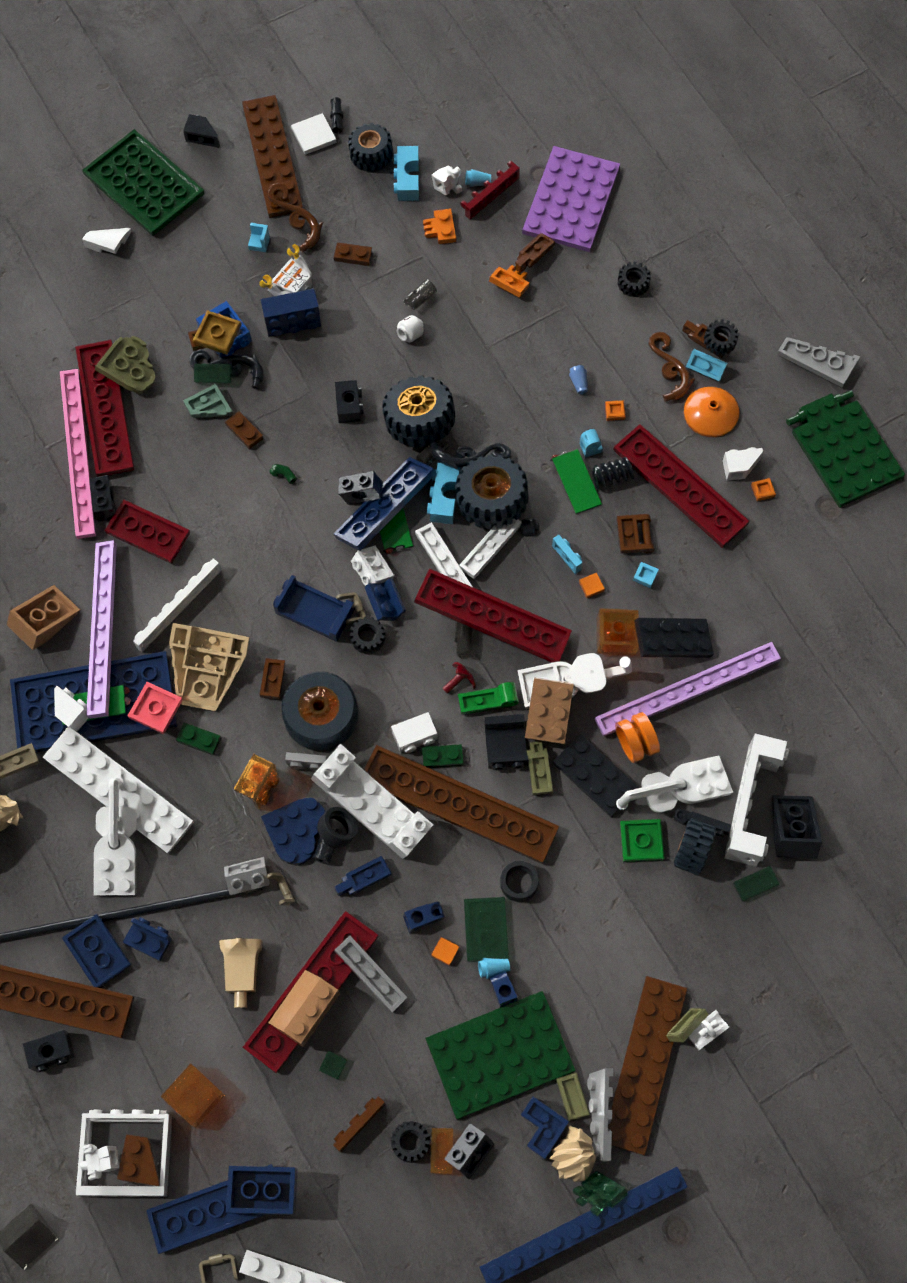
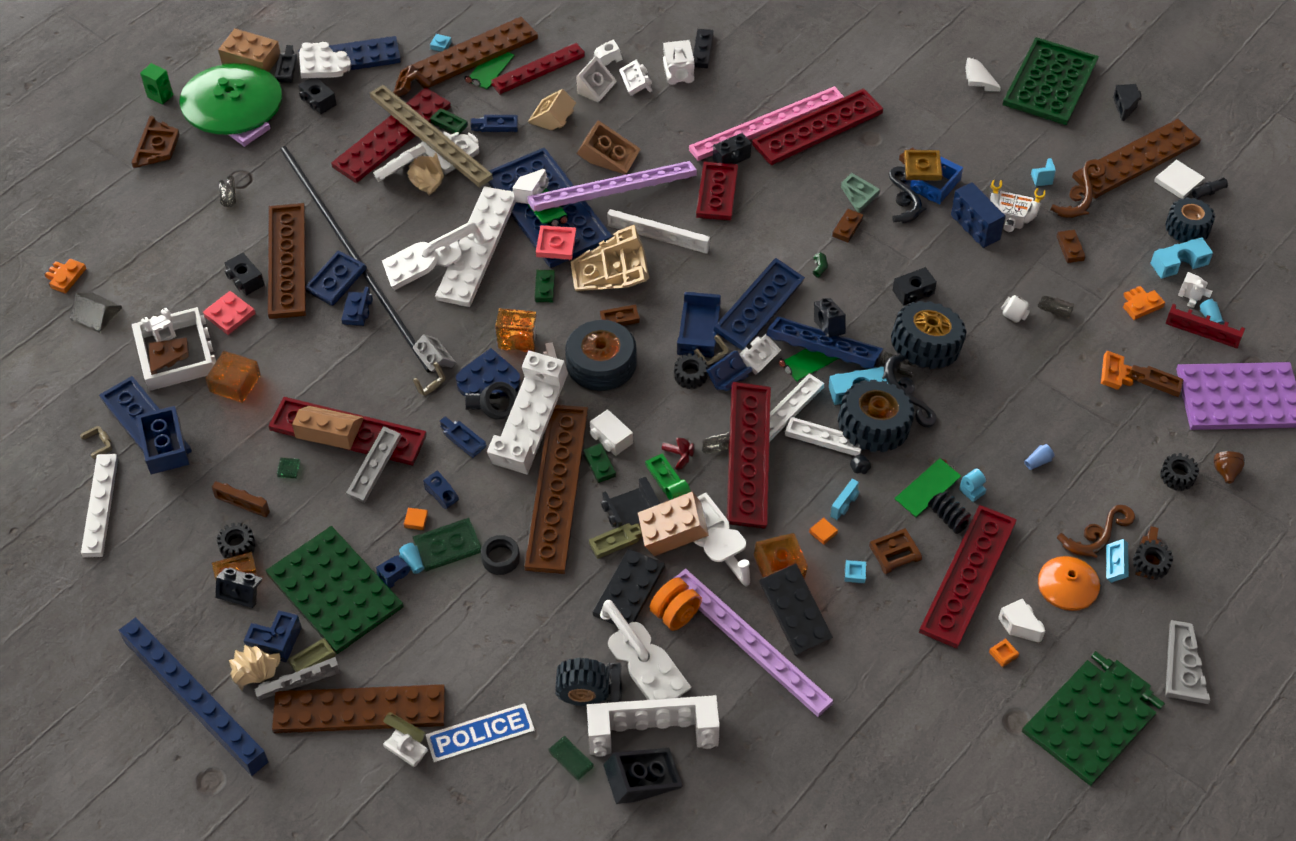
camera: 70 degrees right, 15 degrees down
(94, 1081) = (229, 312): none -> coral plate
(128, 364) = (864, 125): olive plate -> none
(212, 373) = (889, 185): clear green plate -> none
(240, 967) = (351, 374): tan piece -> none
(312, 544) = (759, 304): none -> dark blue plate
(599, 1192) = (224, 695): clear green plate -> none
(614, 410) = (1023, 498): orange tile -> none
(642, 840) = (579, 642): green tile -> none
(644, 240) = (1229, 465): none -> reddish brown helmet
(703, 958) = (479, 732): none -> sticker

